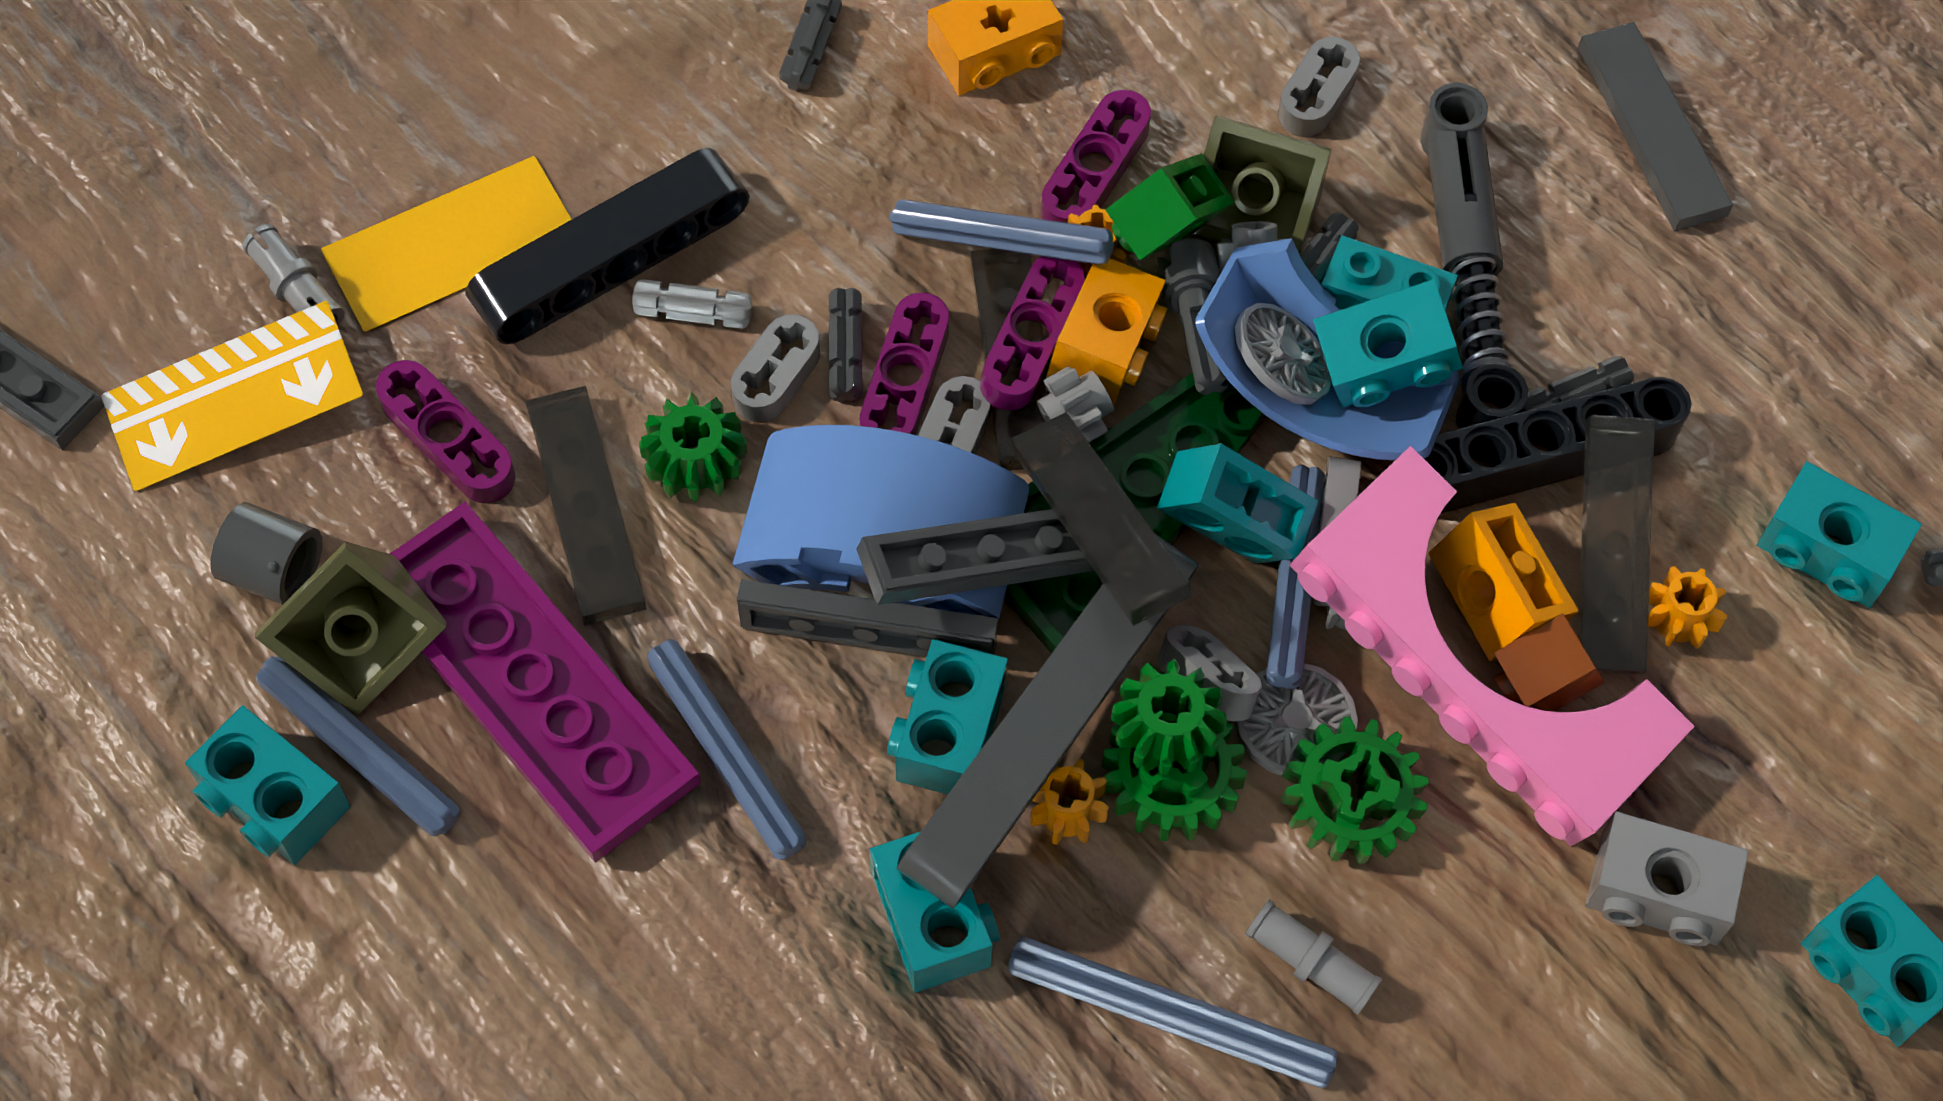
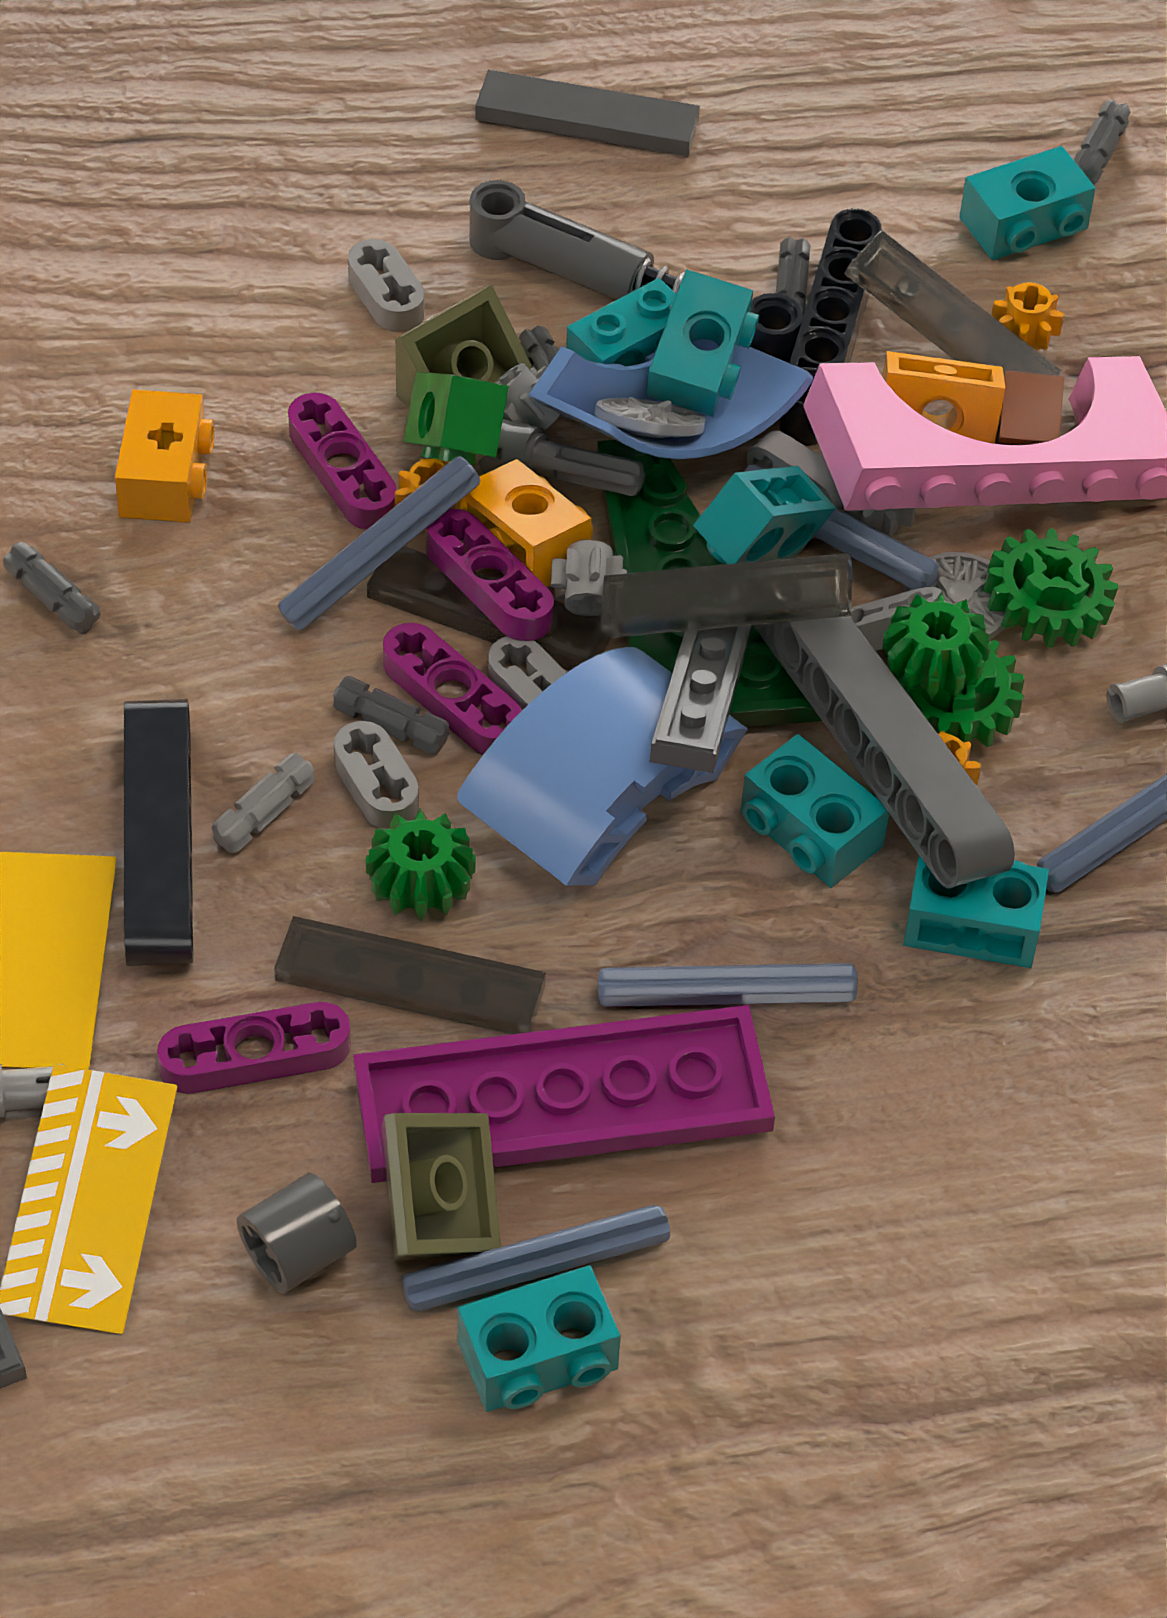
camera: 60 degrees left, 10 degrees down
(859, 620) = (678, 828): dark grey tile -> none

